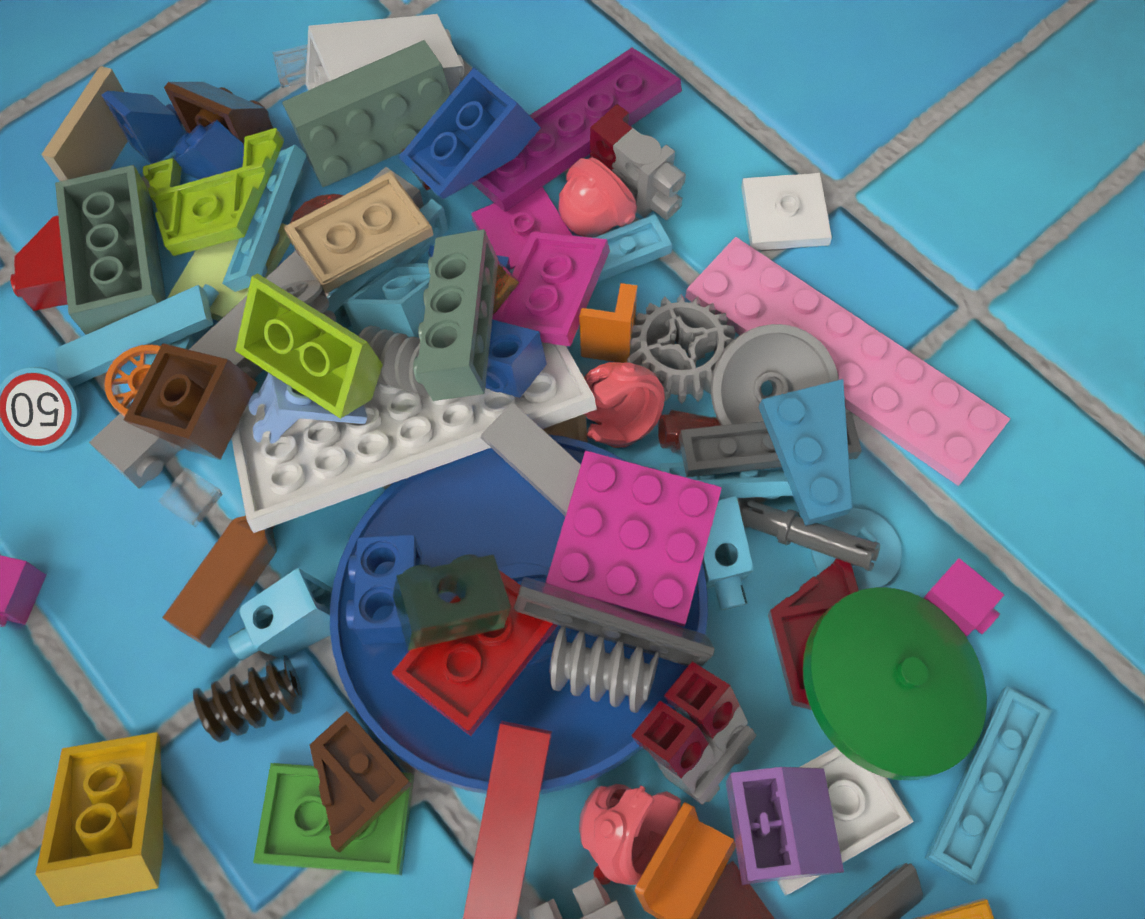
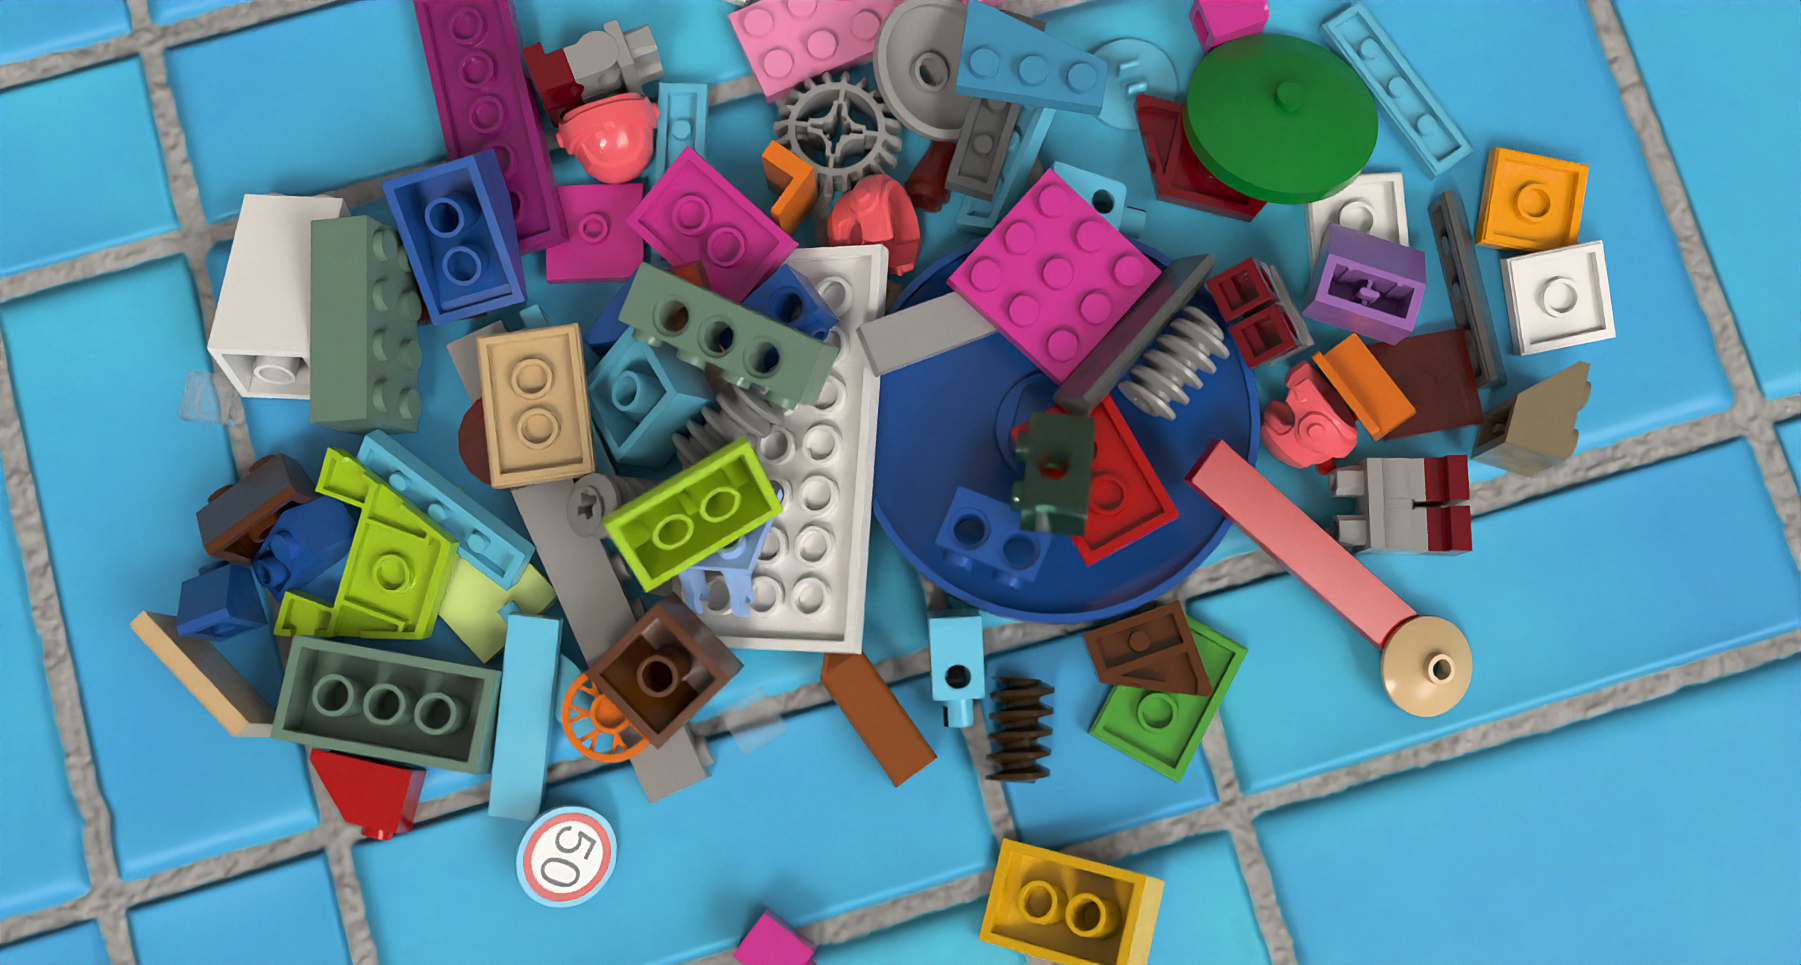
camera: 70 degrees left, 15 degrees up
(790, 528) = (1116, 107): dark grey pin -> none

